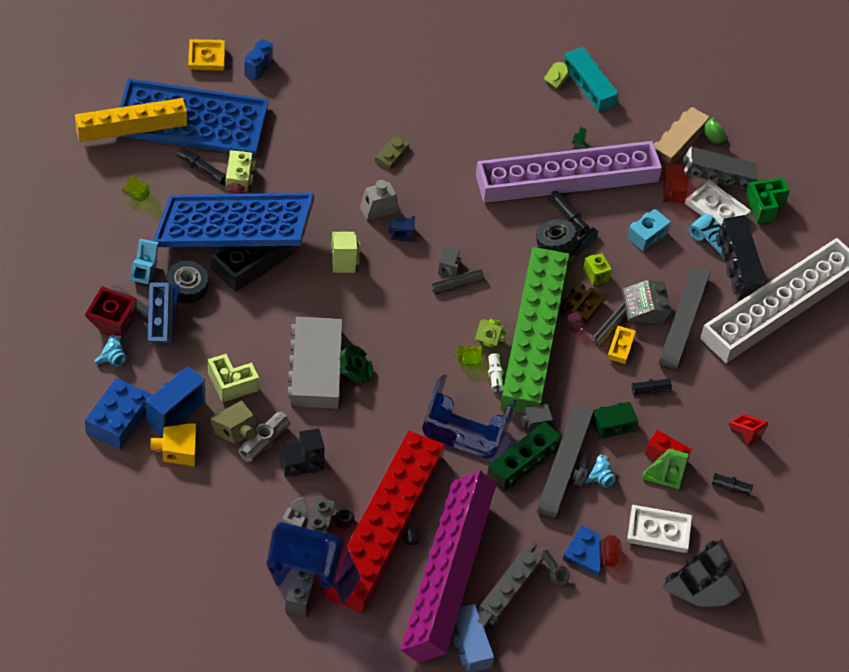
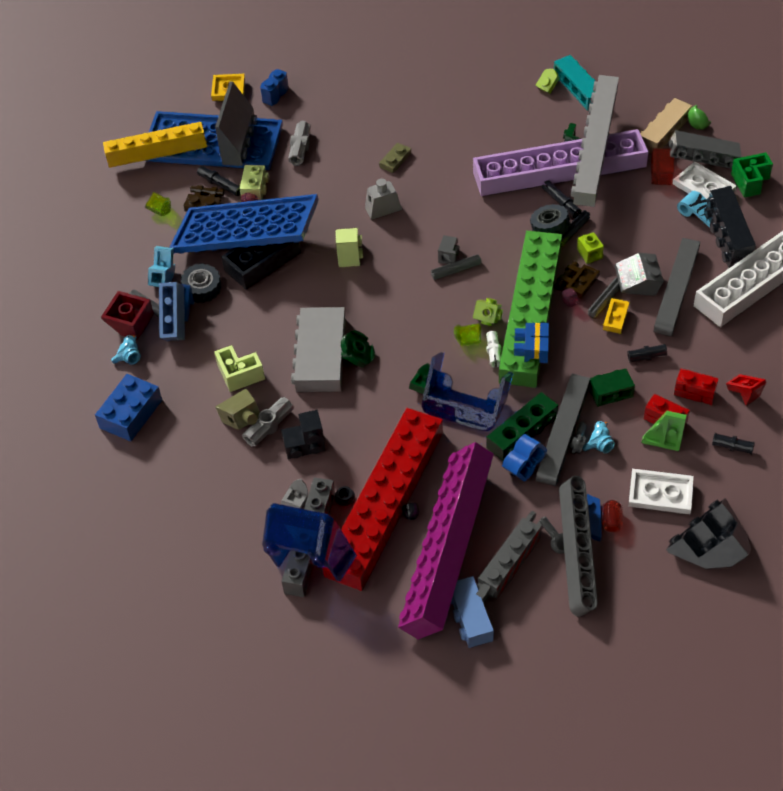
camera: 10 degrees right, 0 degrees up
(175, 400) = (183, 392): blue piece -> none
(177, 444) = (184, 433): yellow torso -> none
(178, 187) = (199, 200): none -> dark brown plate
(221, 108) = (235, 126): none -> dark grey slope
(288, 128) = (299, 143): none -> light grey piece
(402, 228) = (403, 223): dark blue brick -> none
(421, 401) = (419, 381): none -> dark green plate
(526, 488) = (524, 457): none -> blue brick
(535, 416) = (532, 387): dark grey brick -> none
(540, 370) = (535, 343): none -> blue hips
(577, 579) = (578, 546): none -> dark grey beam
(608, 151) = (596, 140): none -> light grey brick
(648, 229) = (638, 209): medium azure brick -> none
(698, 424) = (696, 386): none -> red brick

